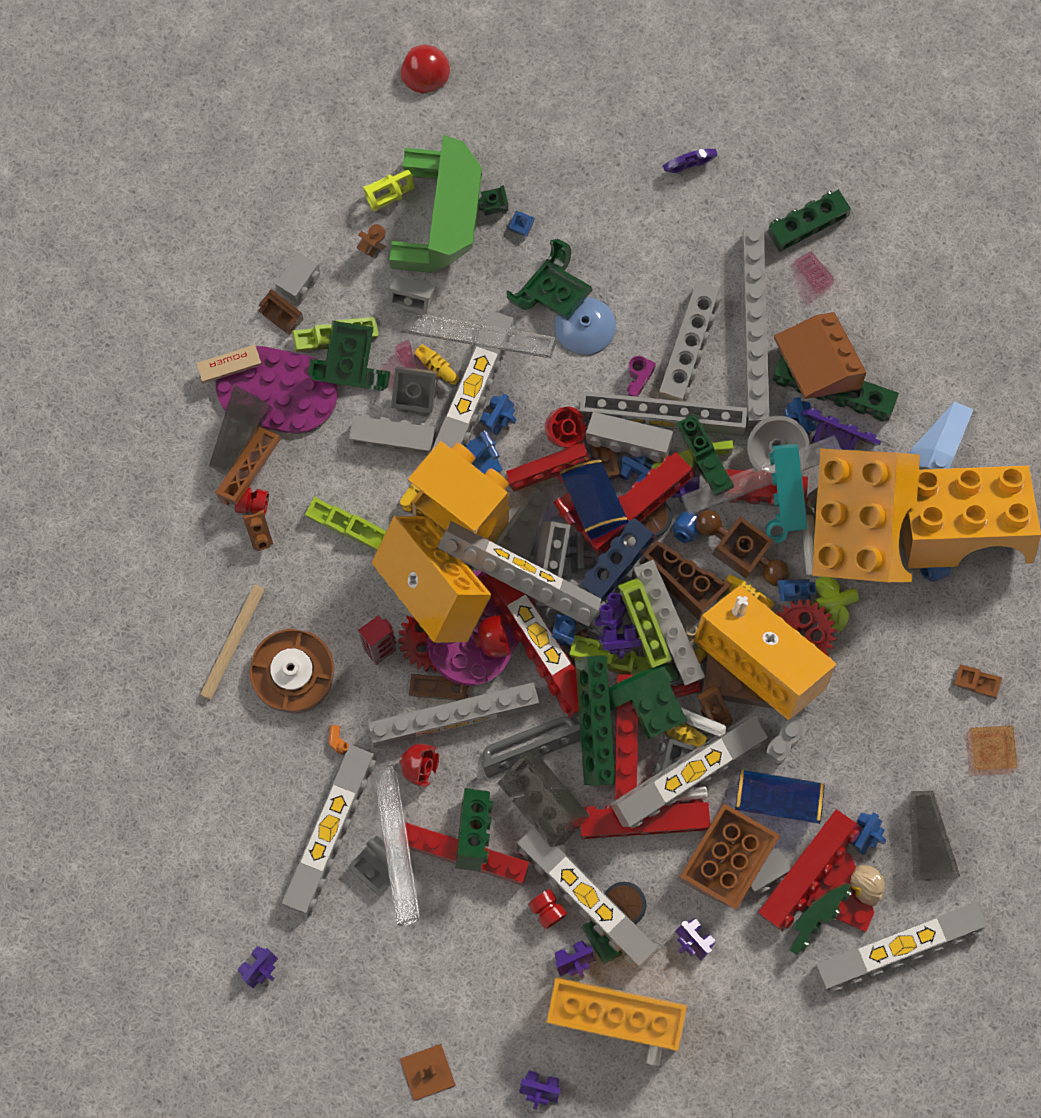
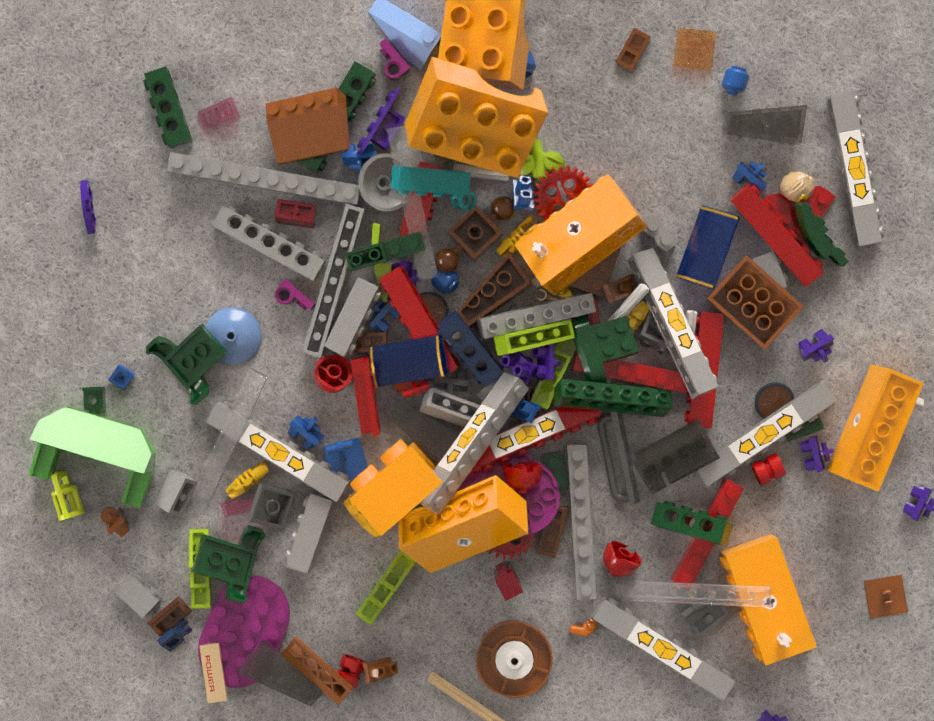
camera: 80 degrees left, 15 degrees up
(258, 320) = (174, 637): none -> dark blue plate
(377, 948) = (777, 629): none -> light orange piece
(508, 678) = (555, 464): none -> dark green plate
(725, 363) = (295, 213): none -> dark red hinge
(909, 436) = (396, 60): none -> magenta plate
(969, 795) = (735, 80): none -> blue head

